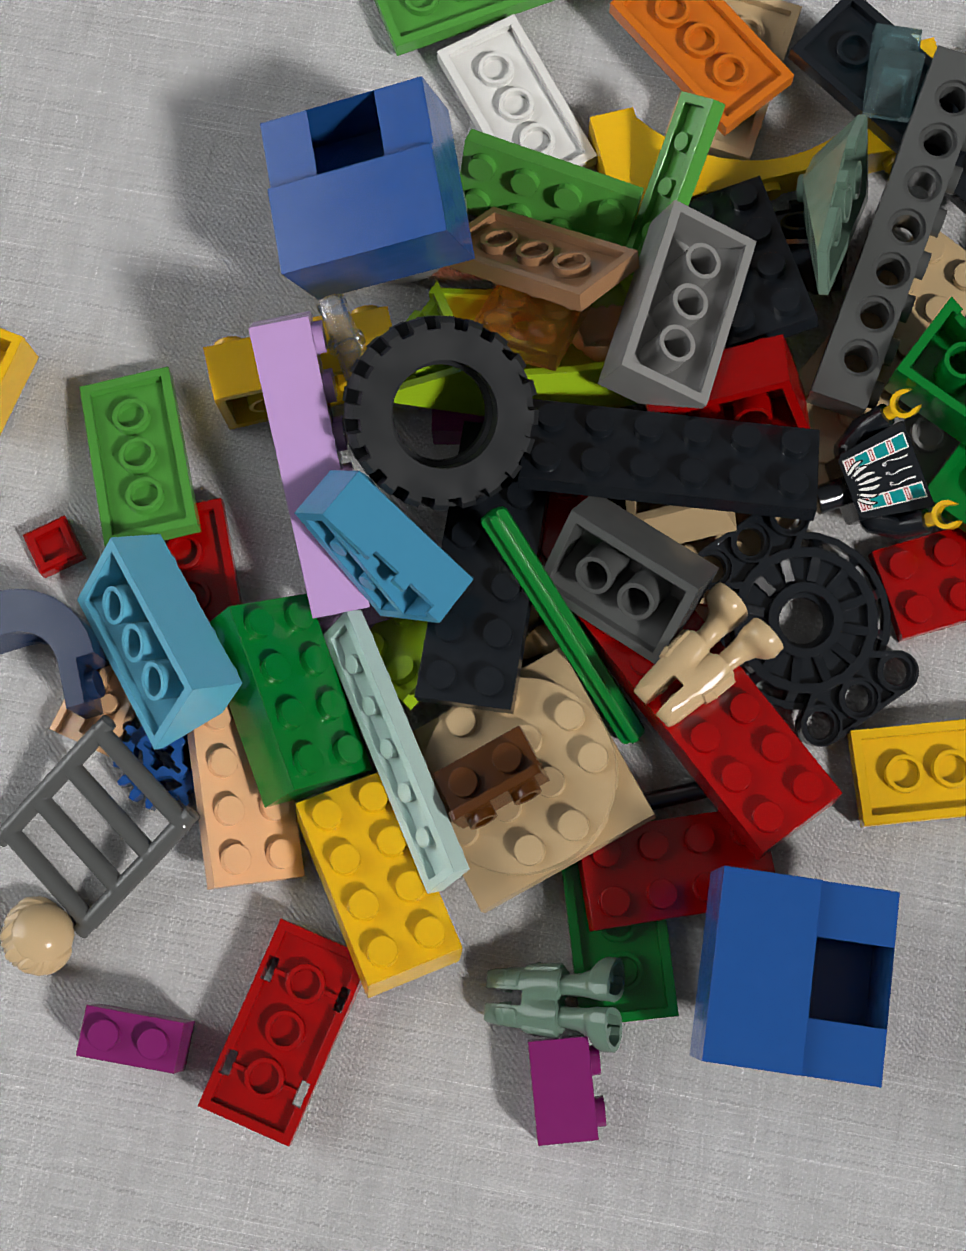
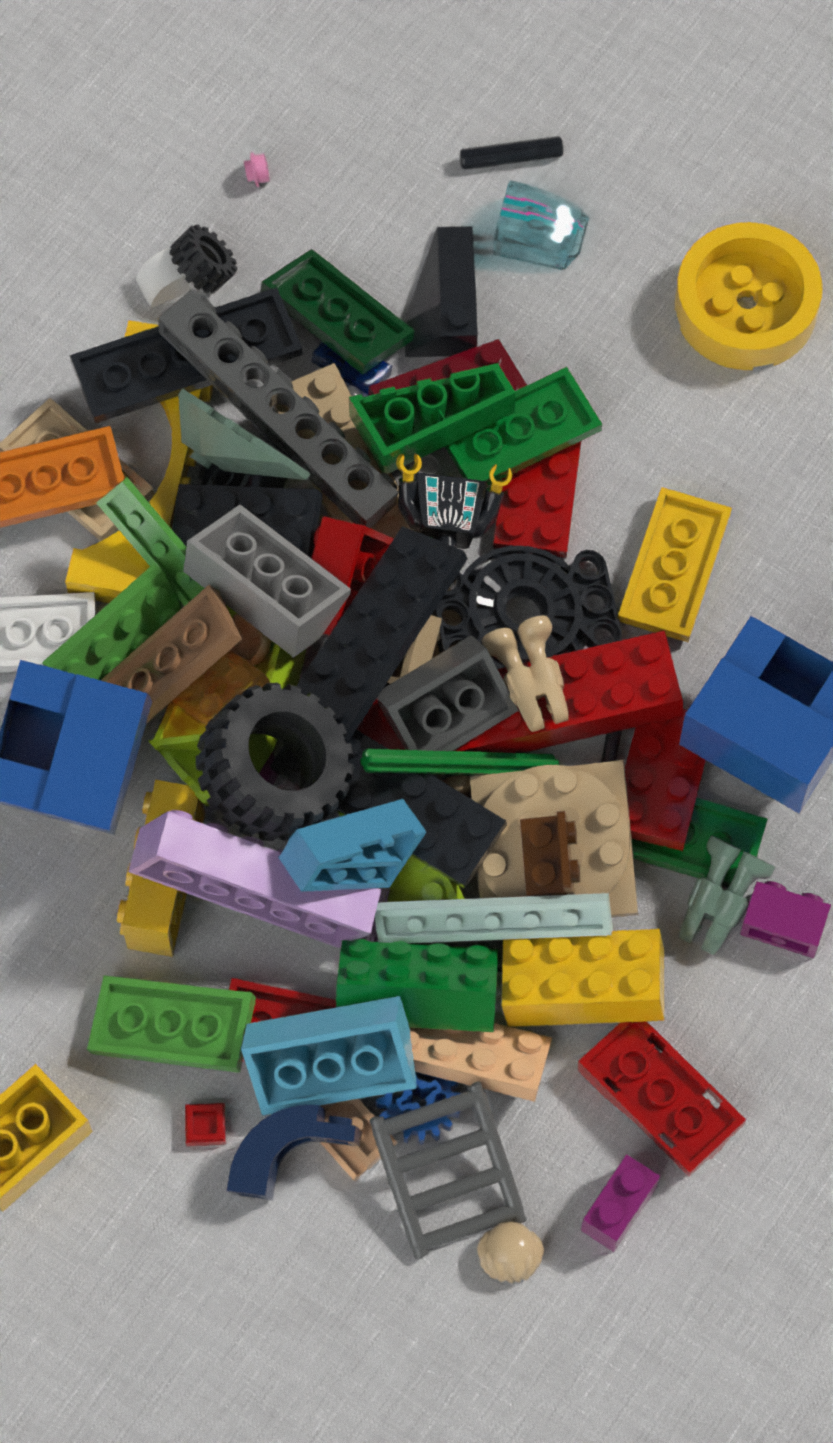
camera: 70 degrees left, 10 degrees down
(345, 339) = (148, 812): clear pin -> none
(893, 72) = (152, 357): clear light blue slope -> none

